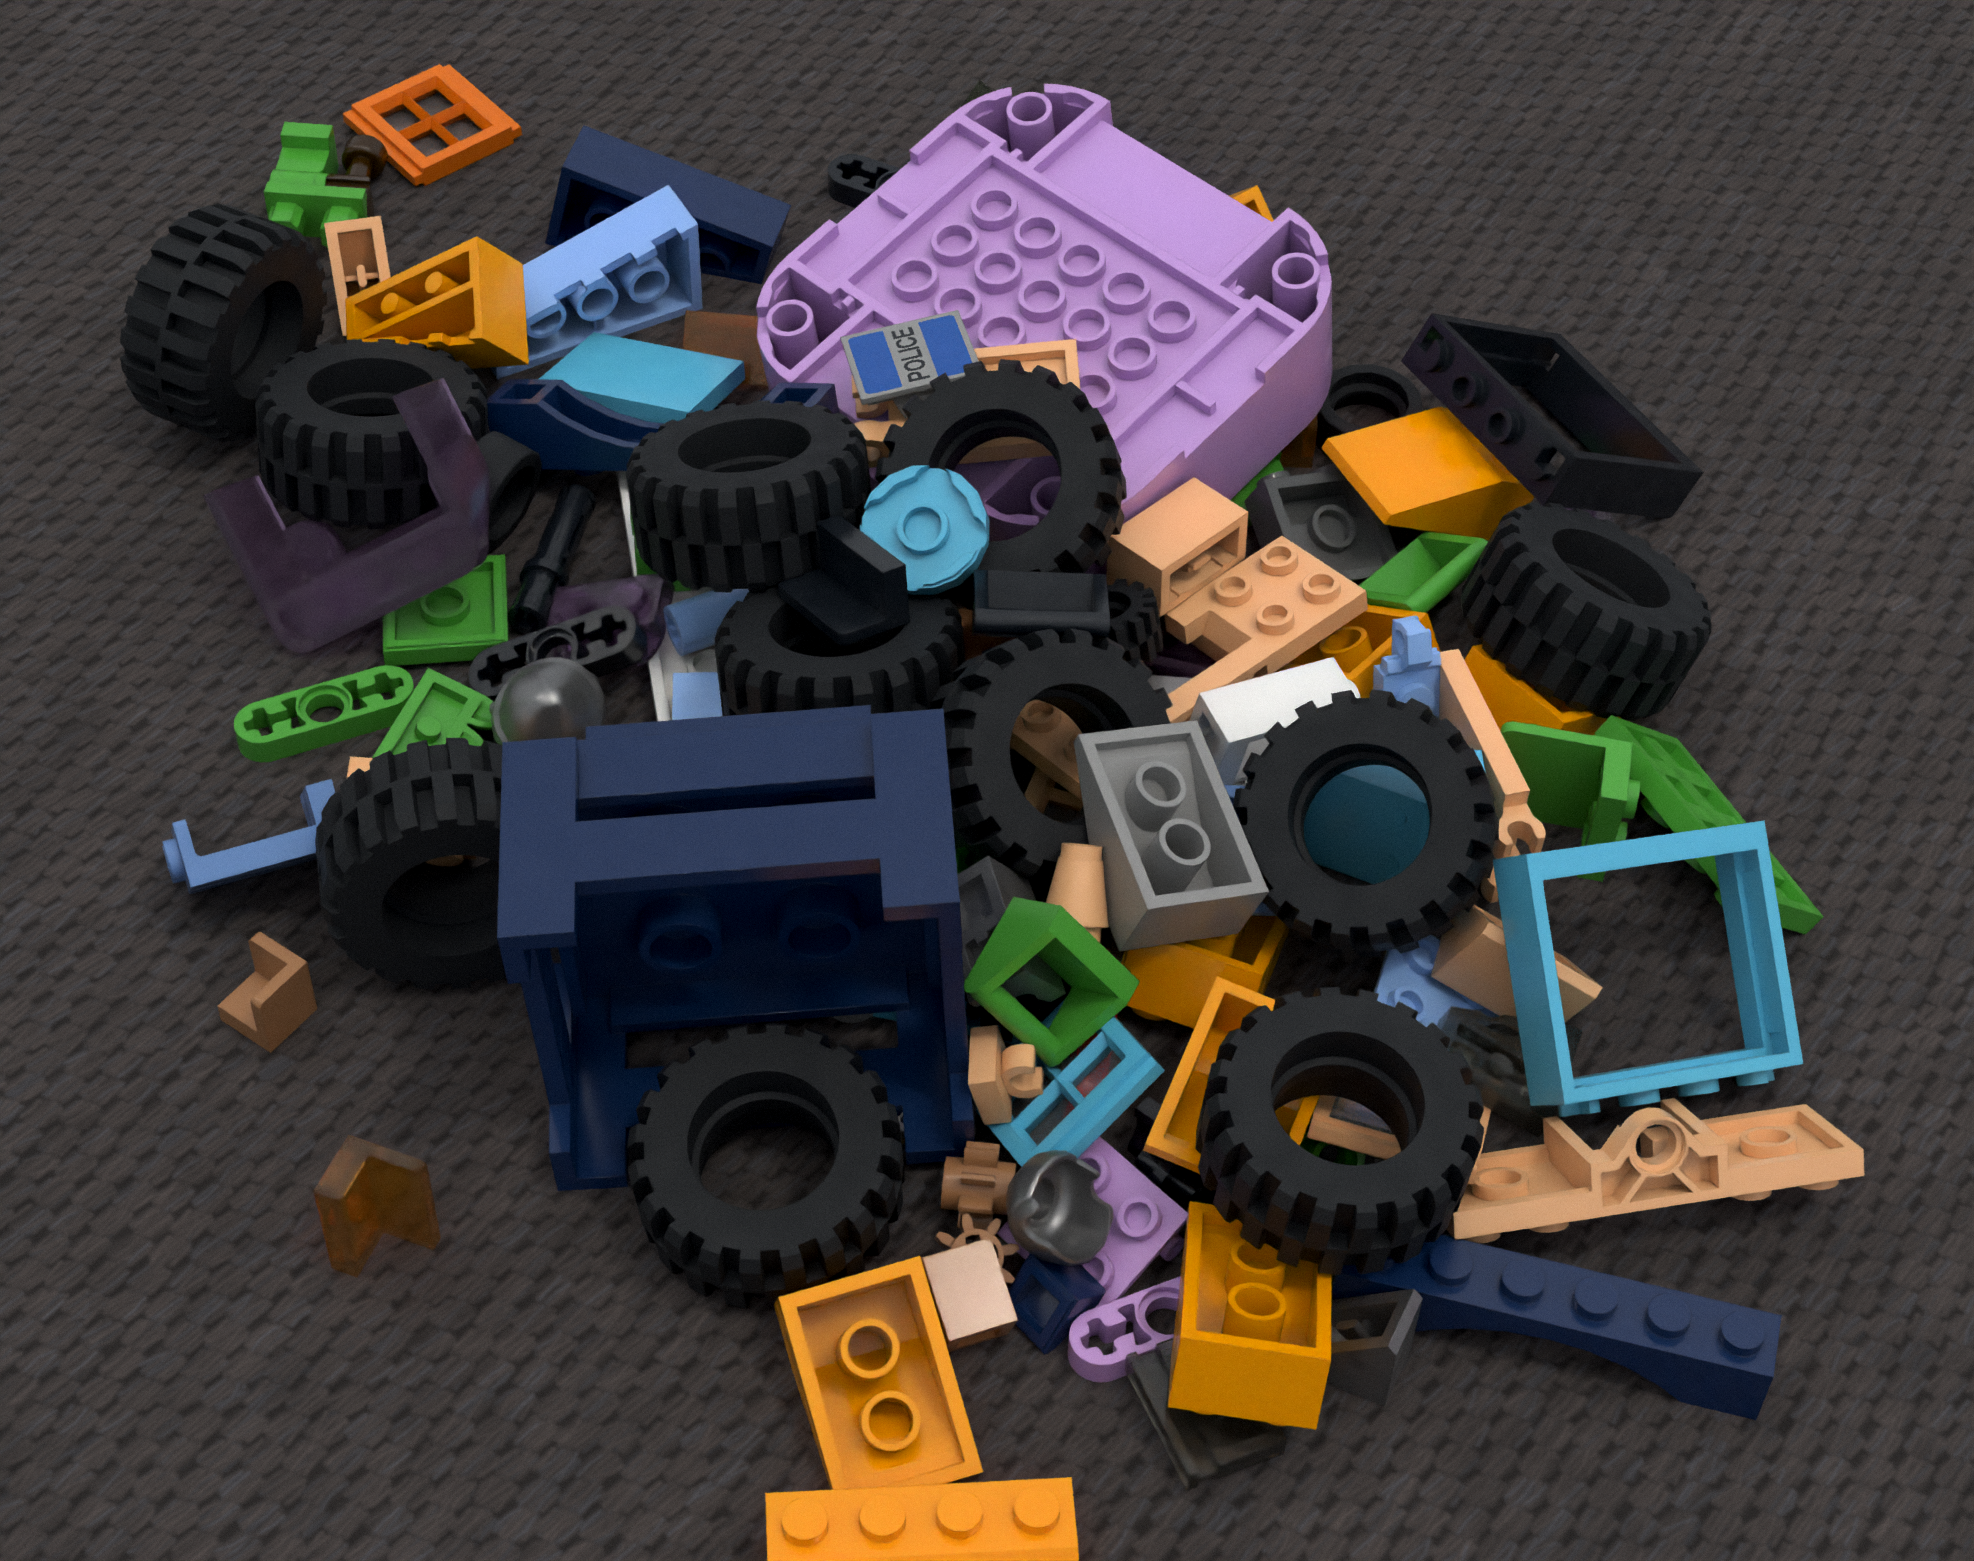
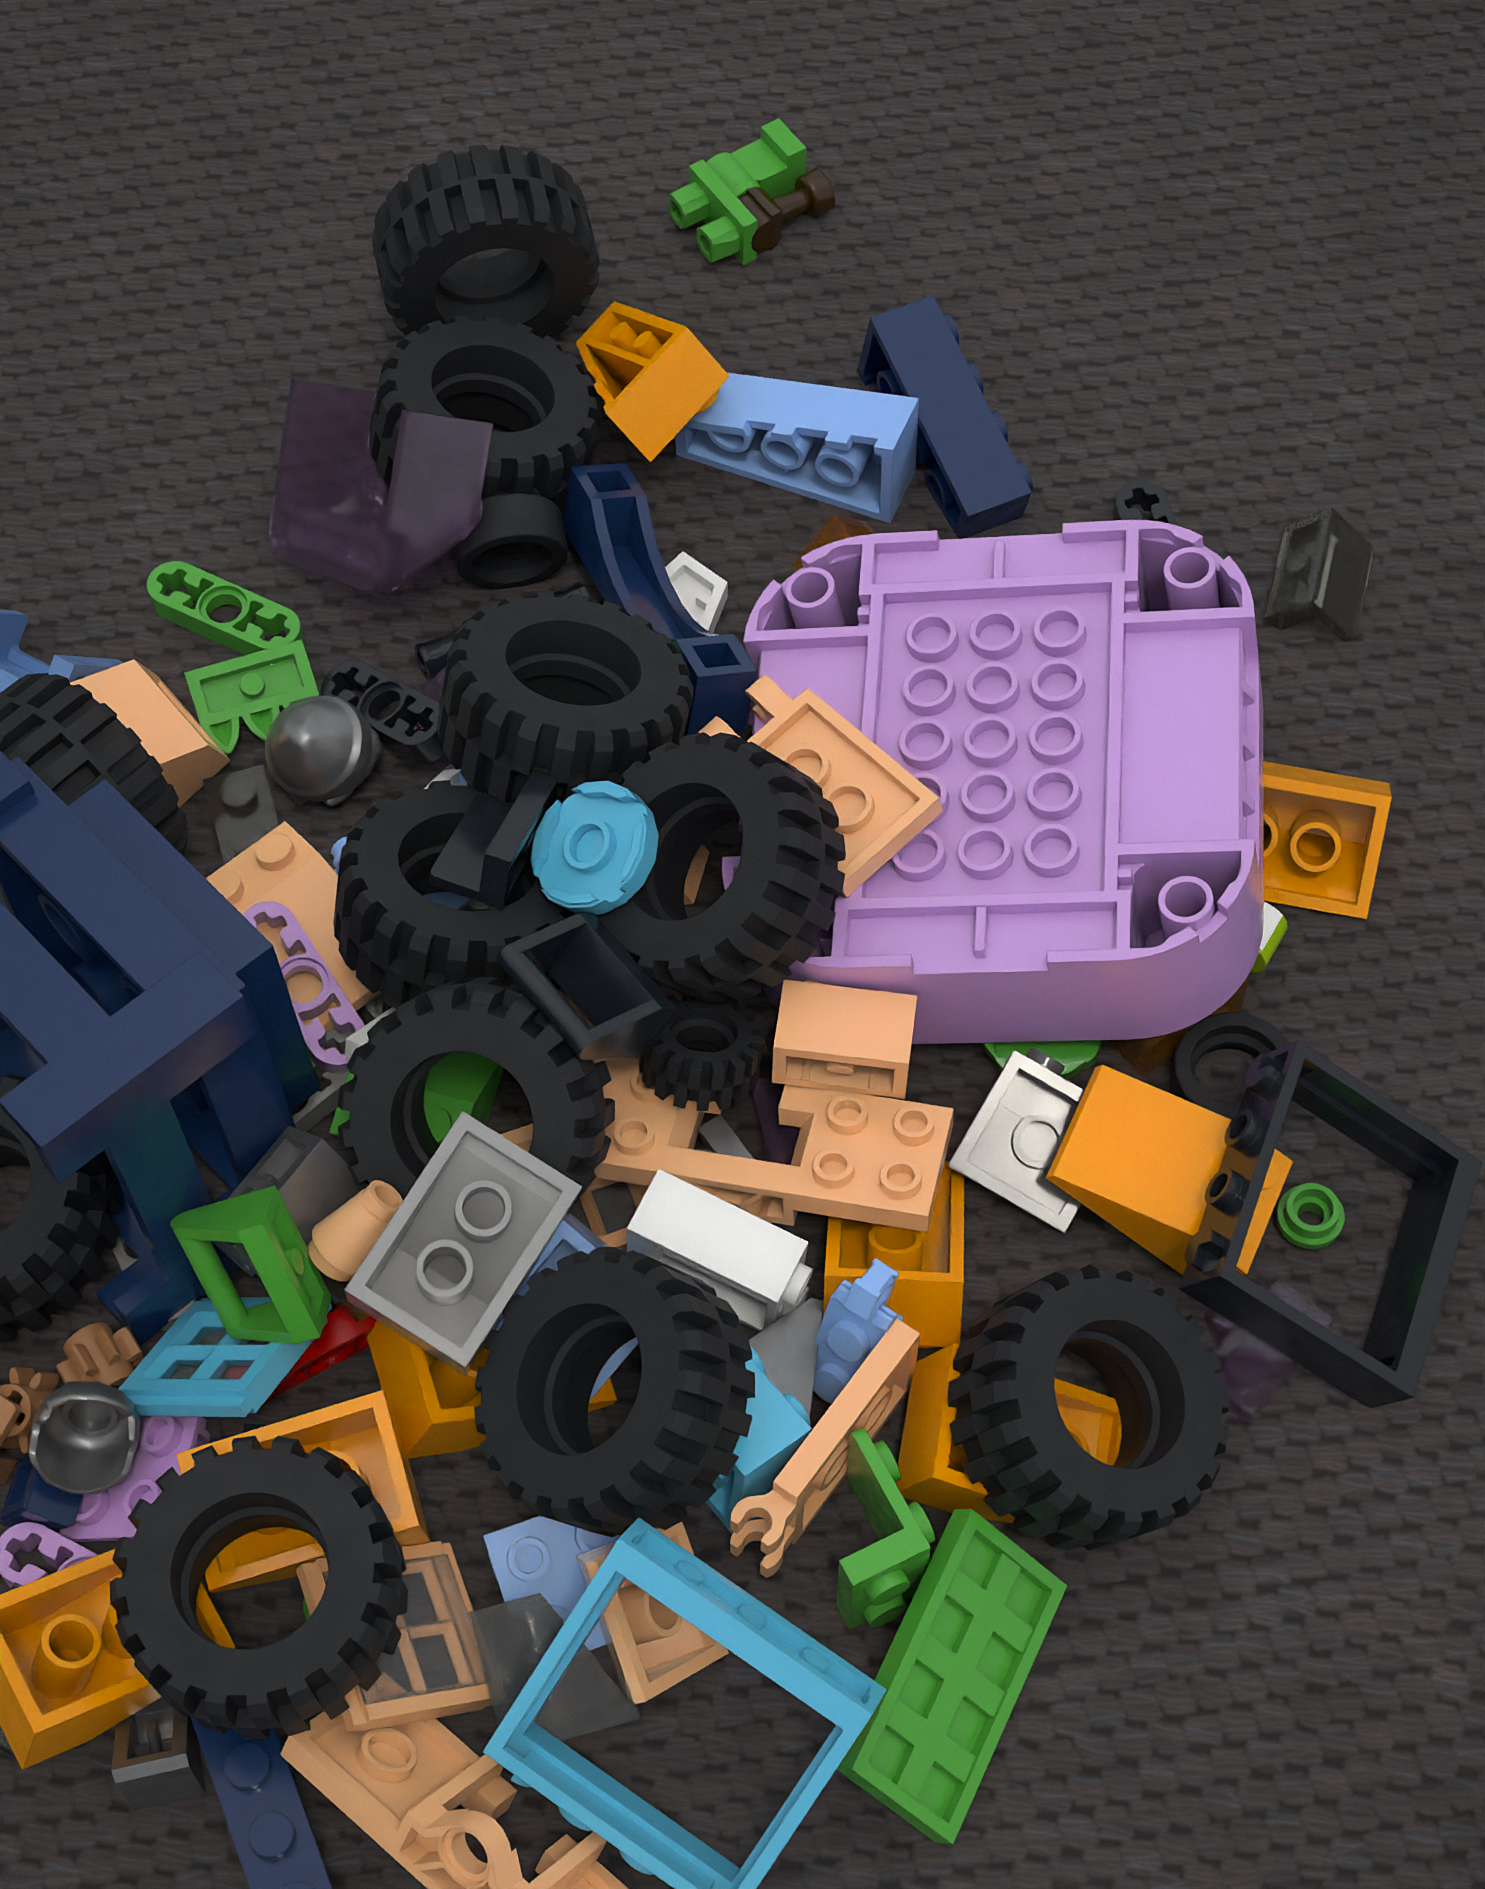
camera: 55 degrees right, 10 degrees up
(356, 258) = (680, 281): light nougat slope -> none
(433, 124) = (906, 203): orange piece -> none
(451, 621) = (388, 626): bright green plate -> none
(647, 378) = (732, 538): medium azure tile -> none
(906, 356) = (802, 702): piece -> none
(1000, 1073) = (181, 1305): light nougat tile -> none
(1423, 571) = (1029, 1243): bright green tile -> none

